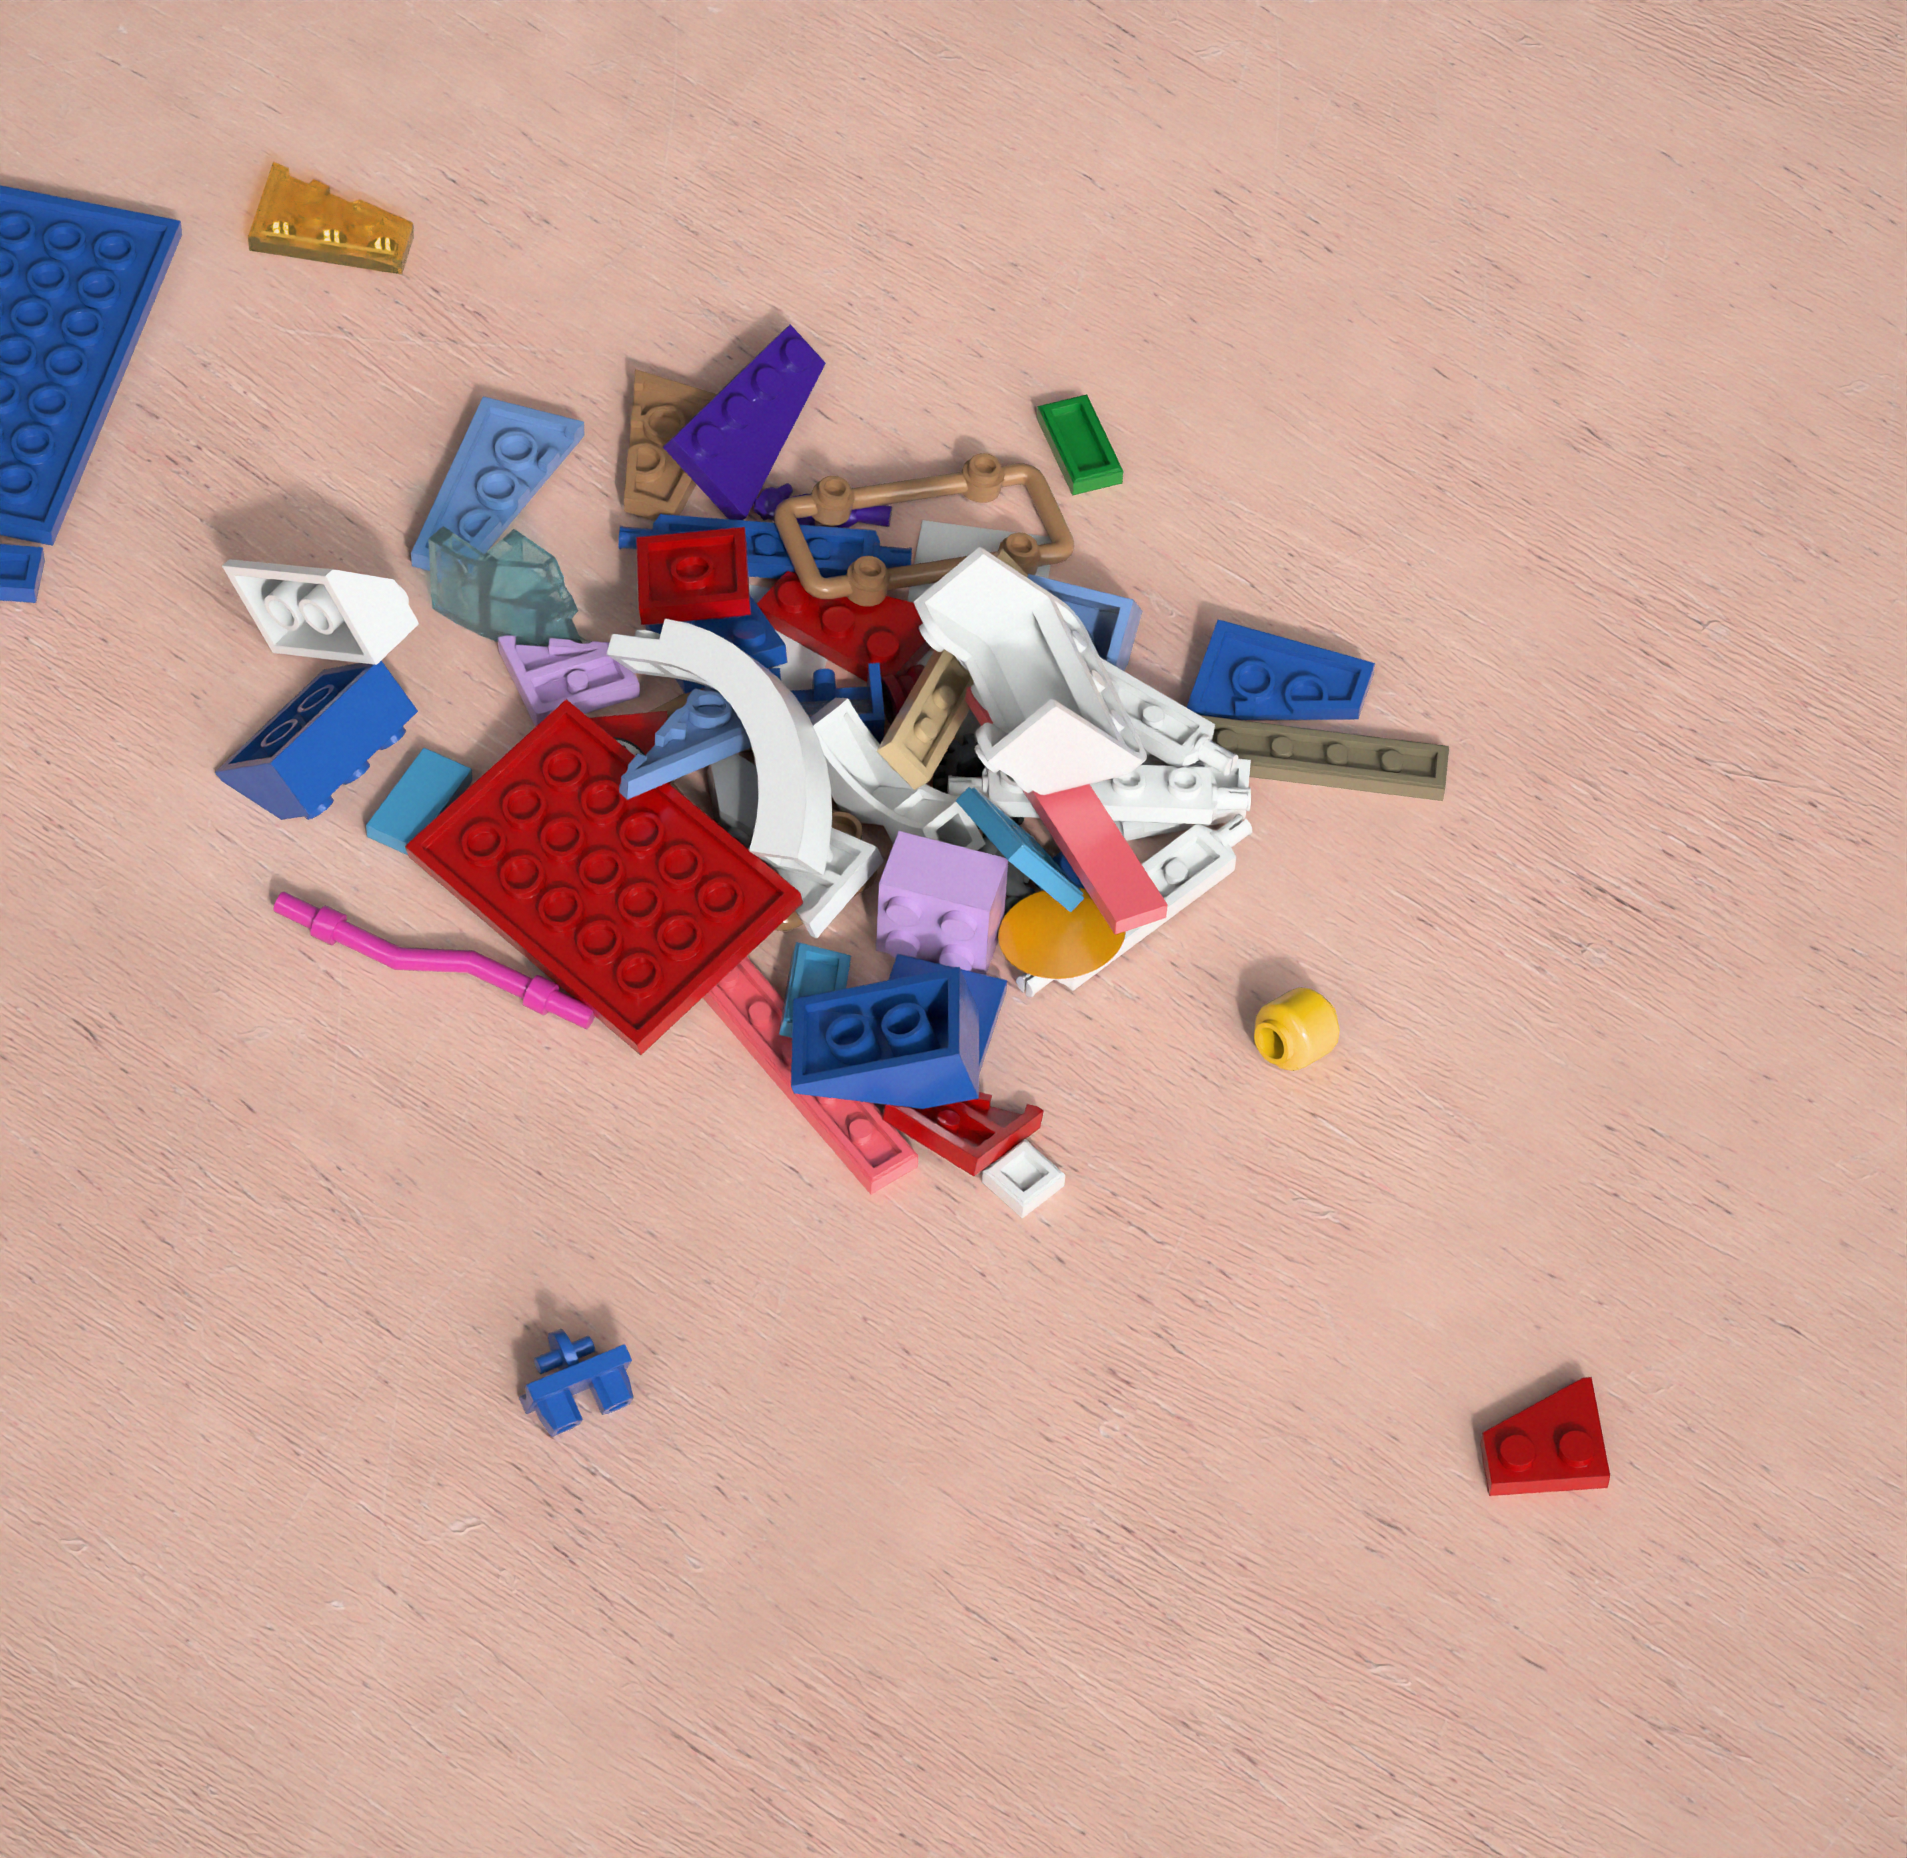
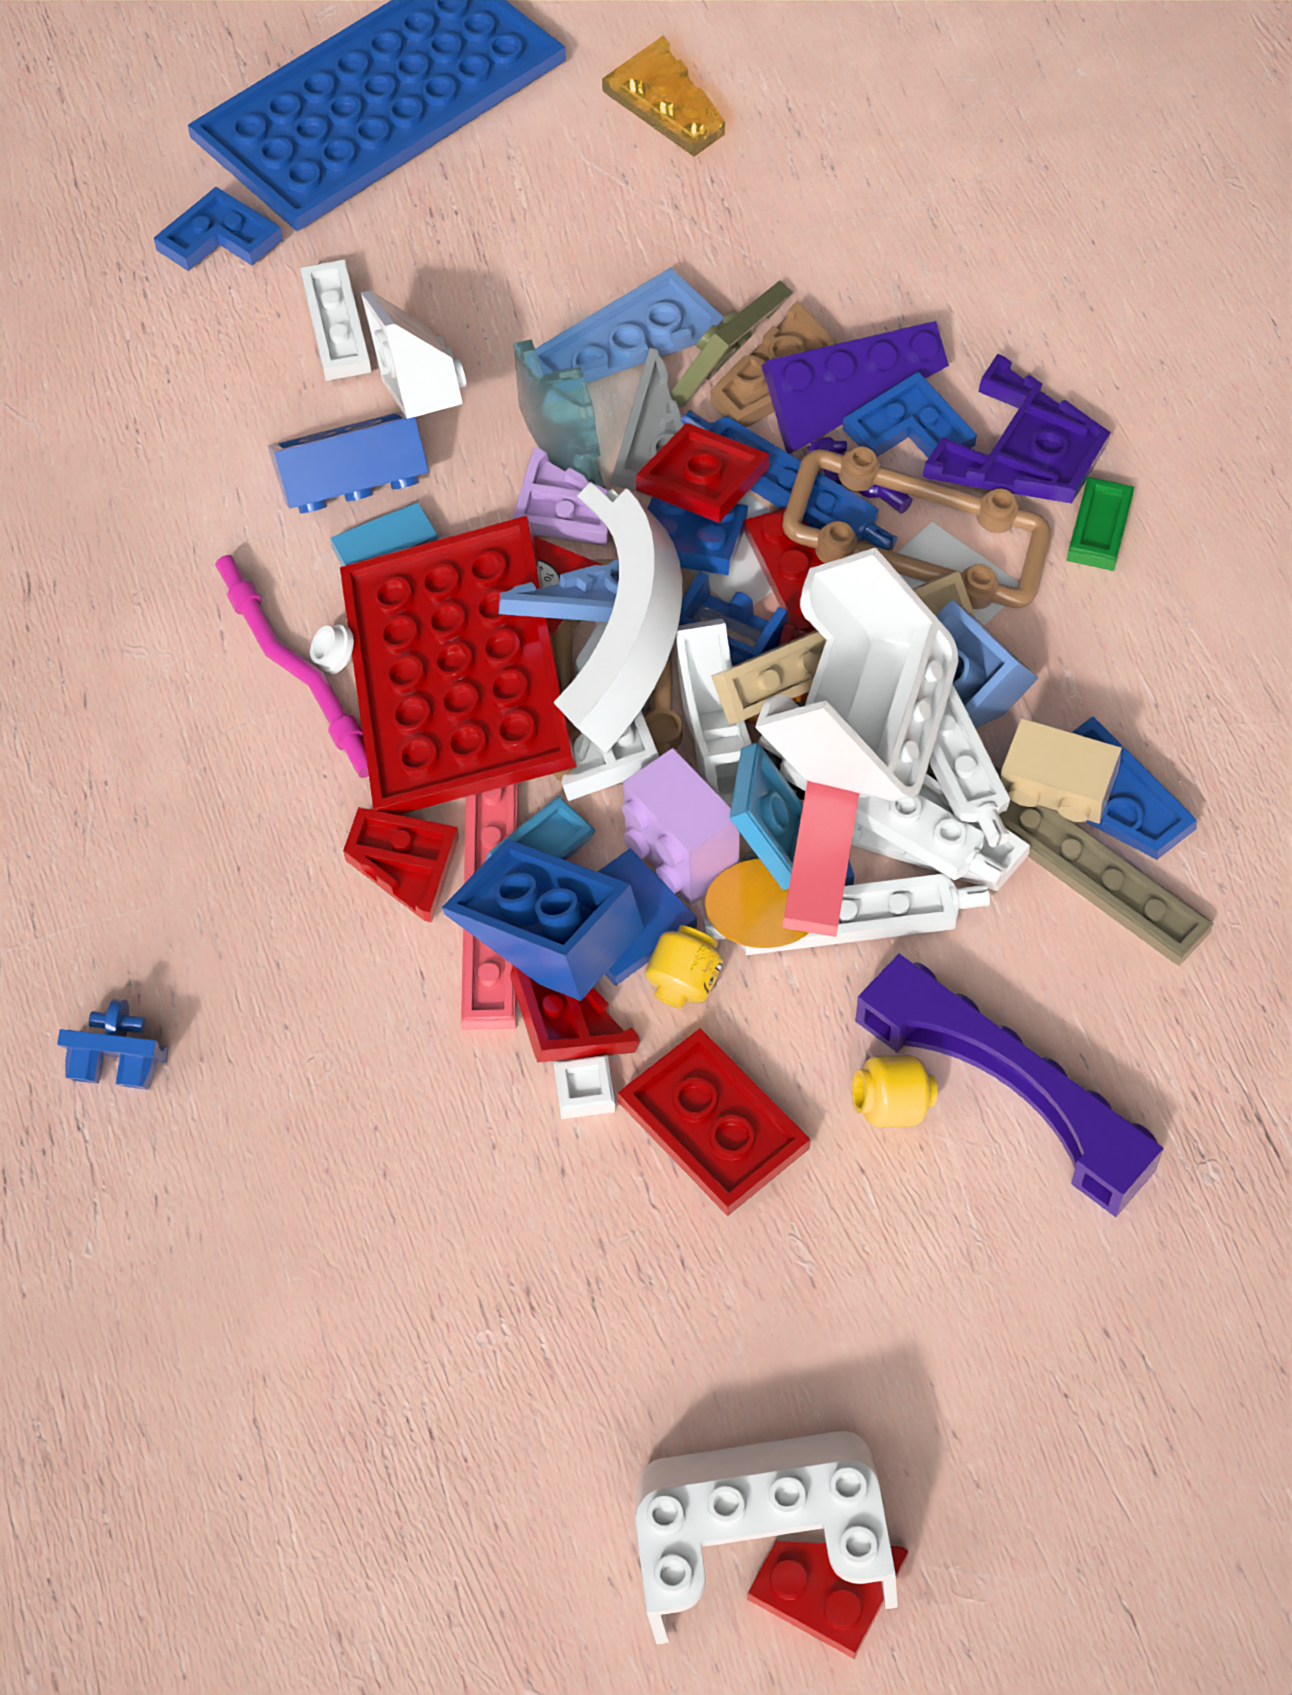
camera: 40 degrees right, 5 degrees up
(180, 613) = (335, 320): none -> white plate
(463, 924) = (332, 648): none -> white plate
(594, 562) = (650, 424): none -> light grey wing
(605, 443) = (726, 339): none -> olive wing
(695, 1074) = (403, 856): none -> red wing
(836, 423) = (907, 411): none -> blue plate
(980, 398) = (1040, 454): none -> dark purple wing
(1034, 1026) = (684, 967): none -> yellow head
(1162, 1140) = (713, 1121): none -> red plate
(1235, 678) = (1060, 771): none -> tan brick
(1404, 1437) = (755, 1495): none -> white windscreen
(1499, 977) = (915, 1010): none -> dark purple arch

